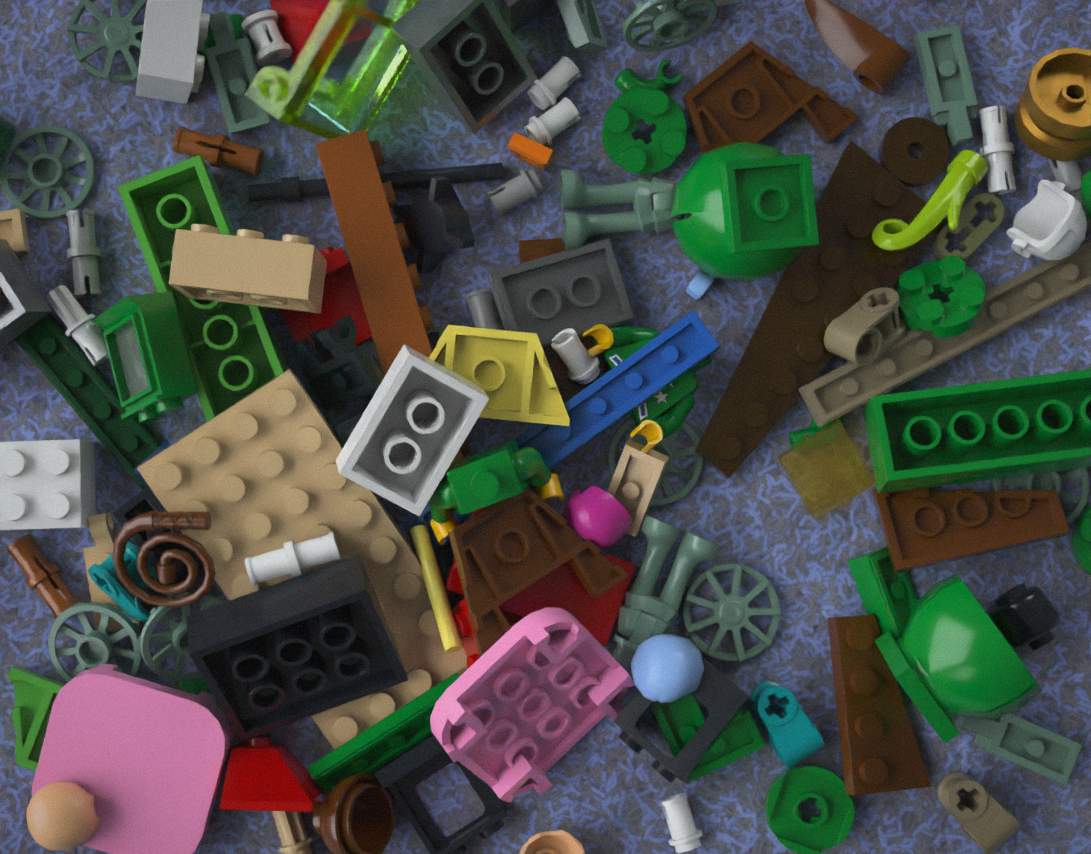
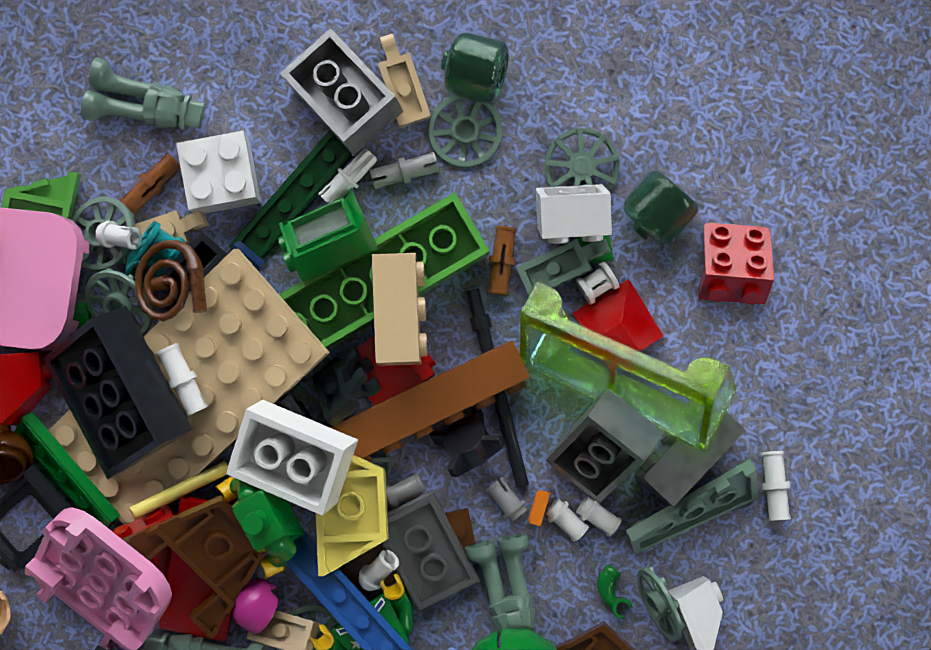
camera: 80 degrees right, 0 degrees up
(96, 628) = (112, 234): none -> white pin
(621, 120) = (564, 613): green plate -> none

